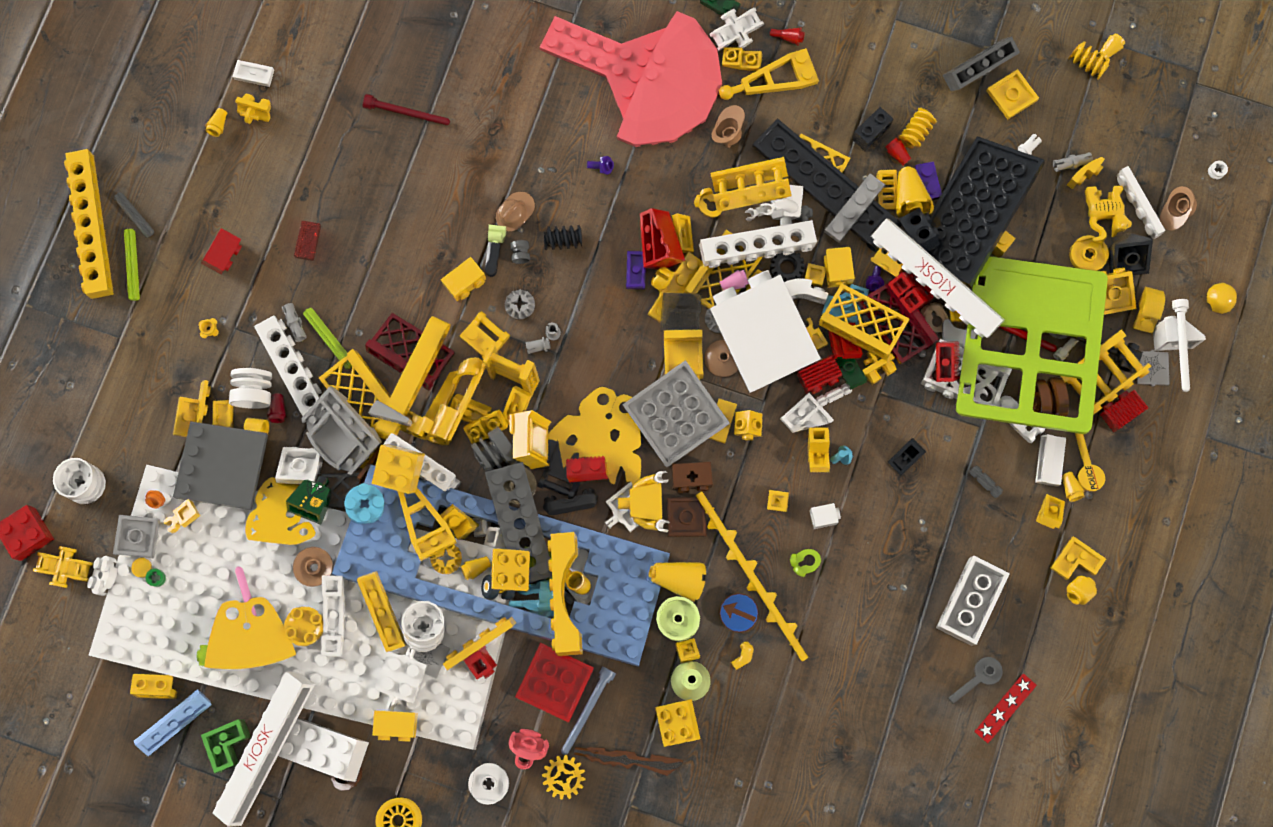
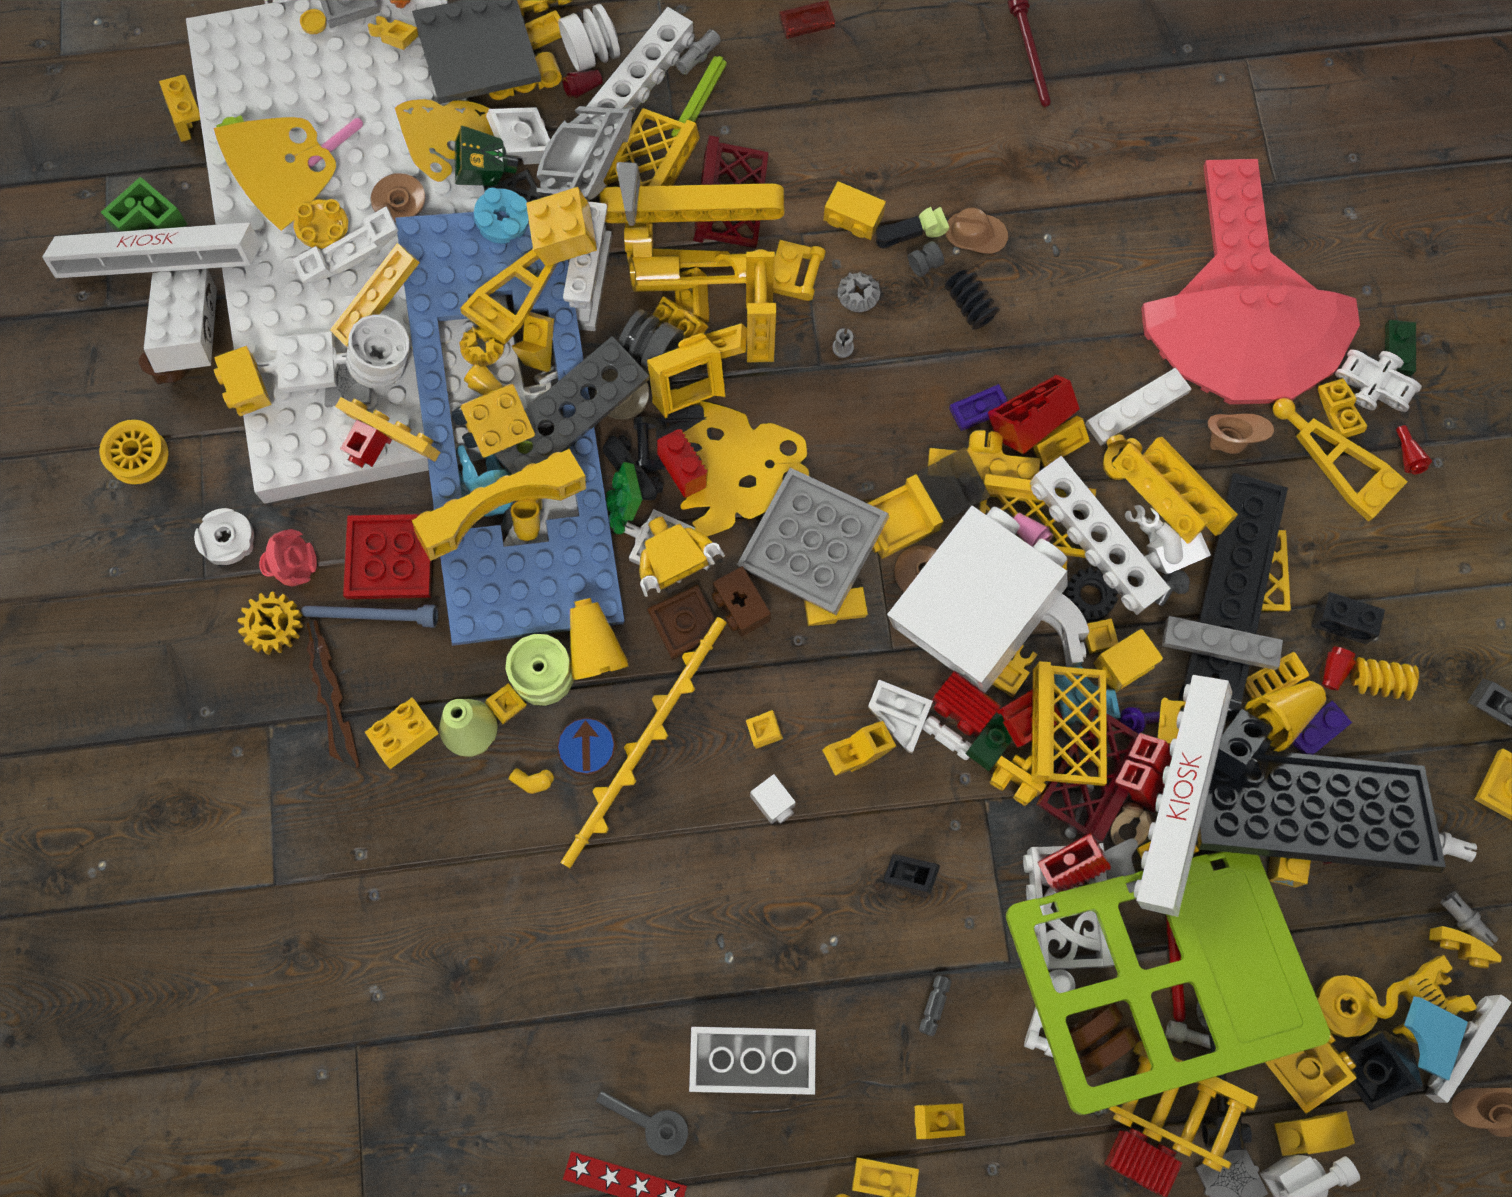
camera: 60 degrees right, 5 degrees down
(159, 582) = (306, 32): green bush -> none
(172, 722) = (148, 147): light blue plate -> none
(538, 345) = (816, 336): light grey pin -> none
(590, 512) = (625, 499): none -> green plate
(605, 165) = (1098, 306): dark purple plate -> none
(681, 176) = (1138, 406): none -> white plate
(748, 424) = (846, 640): yellow brick -> none
(796, 558) = (697, 790): lime piece -> none
(844, 455) = (871, 787): medium azure plate -> none
(1050, 460) = (1013, 1085): white piece -> none
(1072, 487) = (989, 1137): yellow cone -> none
(1090, 476) = (1020, 1157): yellow piece -> none
(1129, 215) = (1437, 1036): none -> medium azure tile

